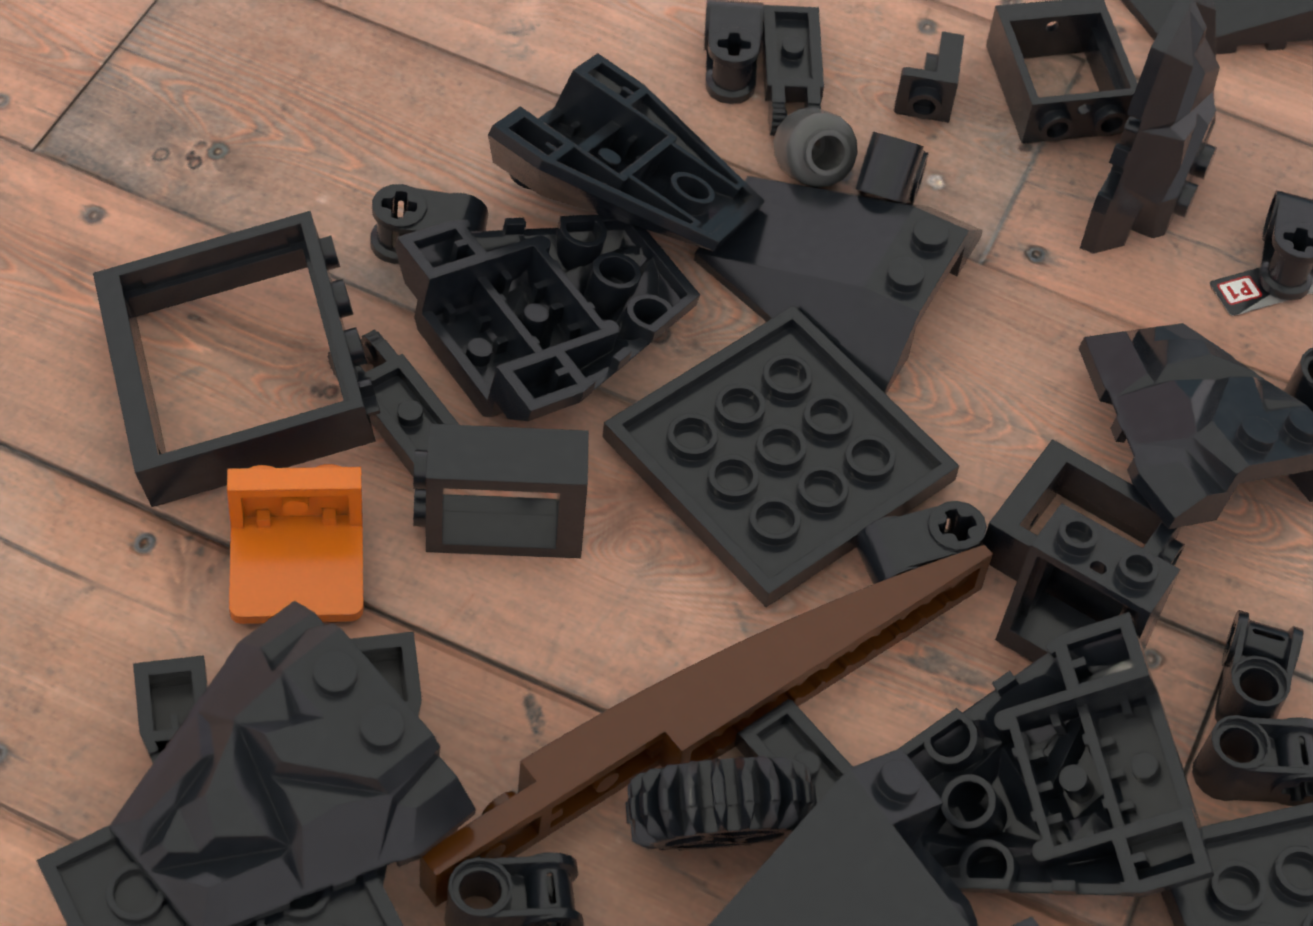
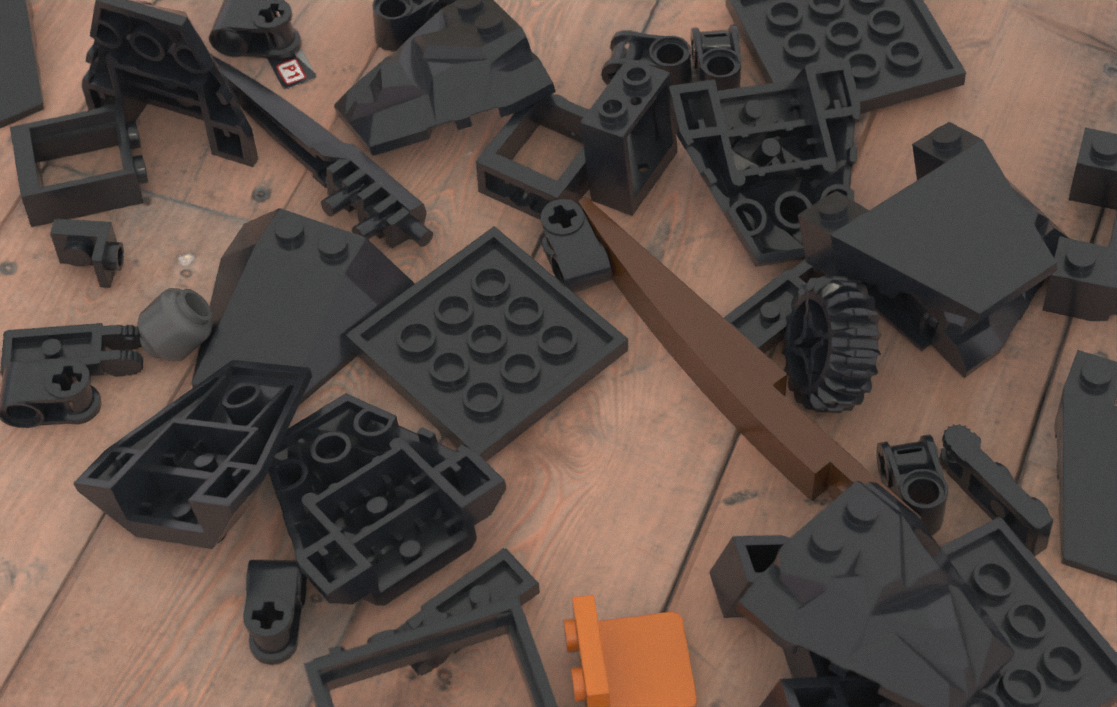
camera: 85 degrees left, 0 degrees up
(502, 461) = (570, 505): black window -> none
(892, 168) = (207, 266): black piece -> none
(1036, 336) = (342, 168): none -> black piece

